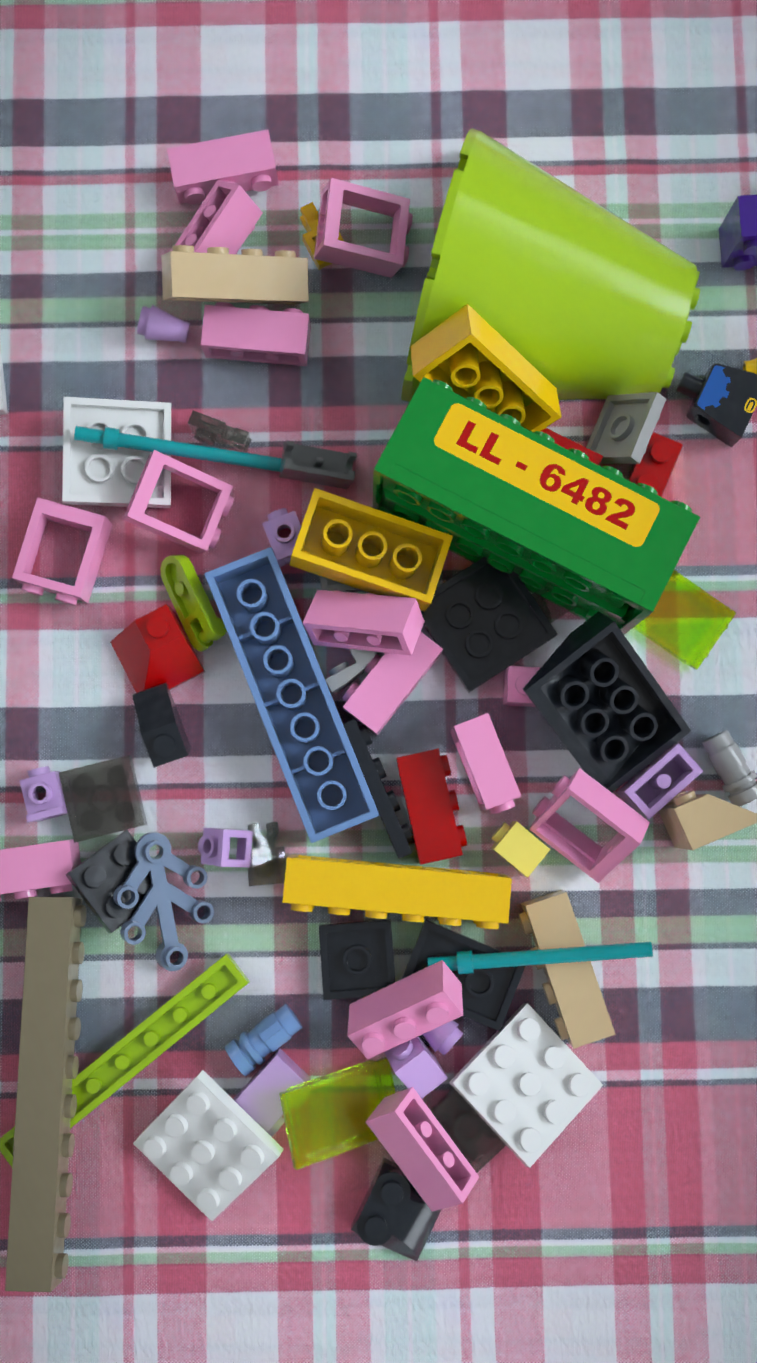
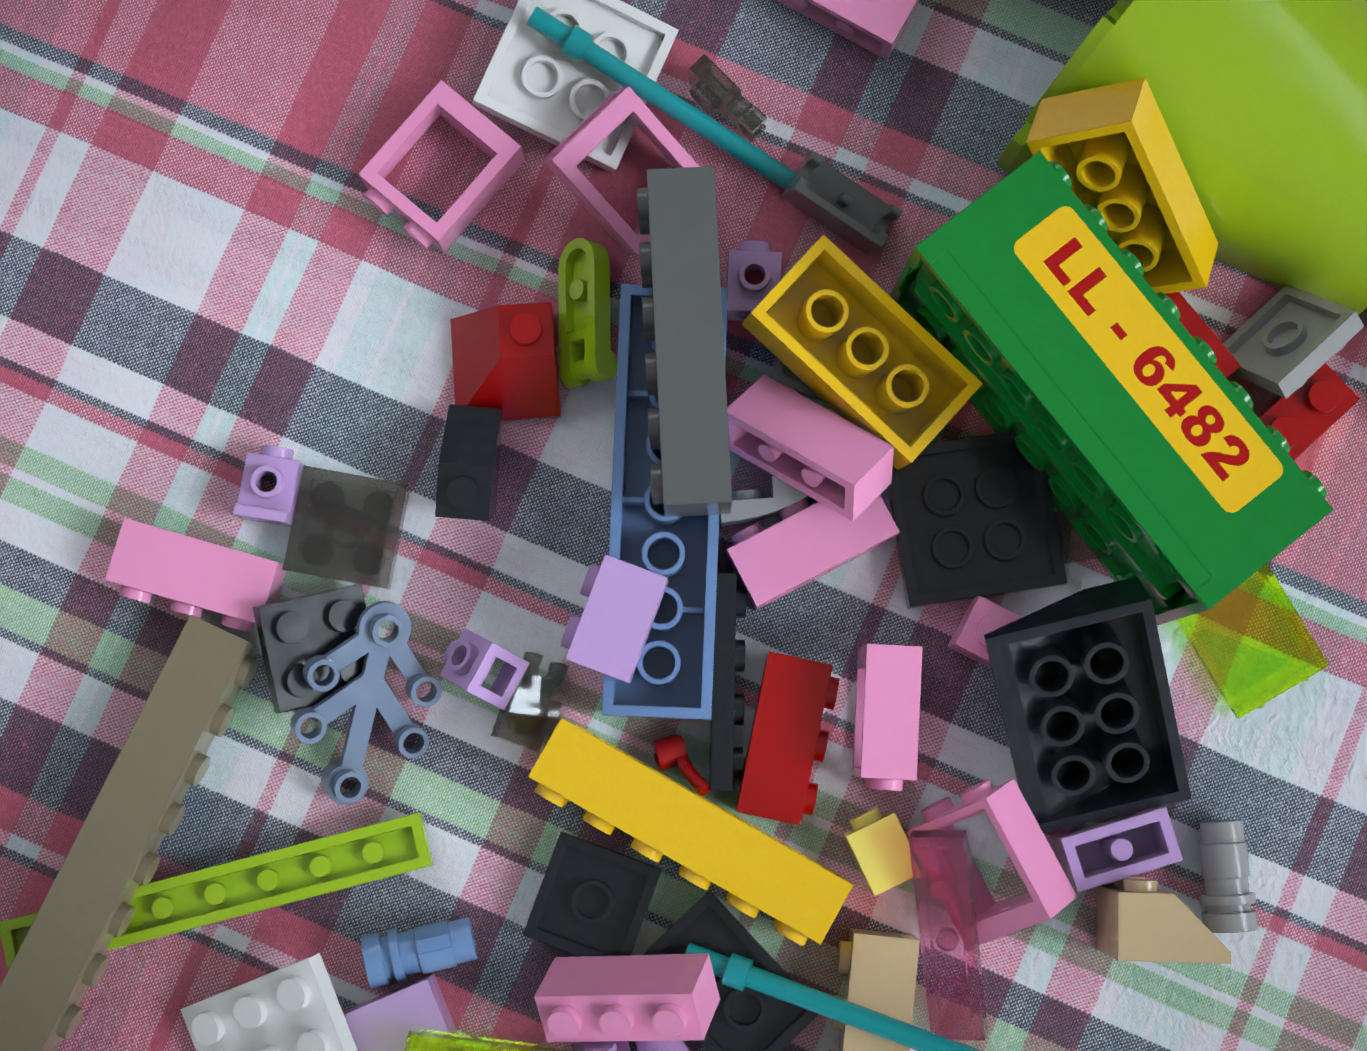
camera: 25 degrees right, 0 degrees up
(258, 586) = (689, 341): none -> dark grey brick
(292, 780) = (615, 618): none -> lavender brick
(365, 846) = (673, 753): none -> red hand
(582, 880) = (948, 933): none -> clear pink tile

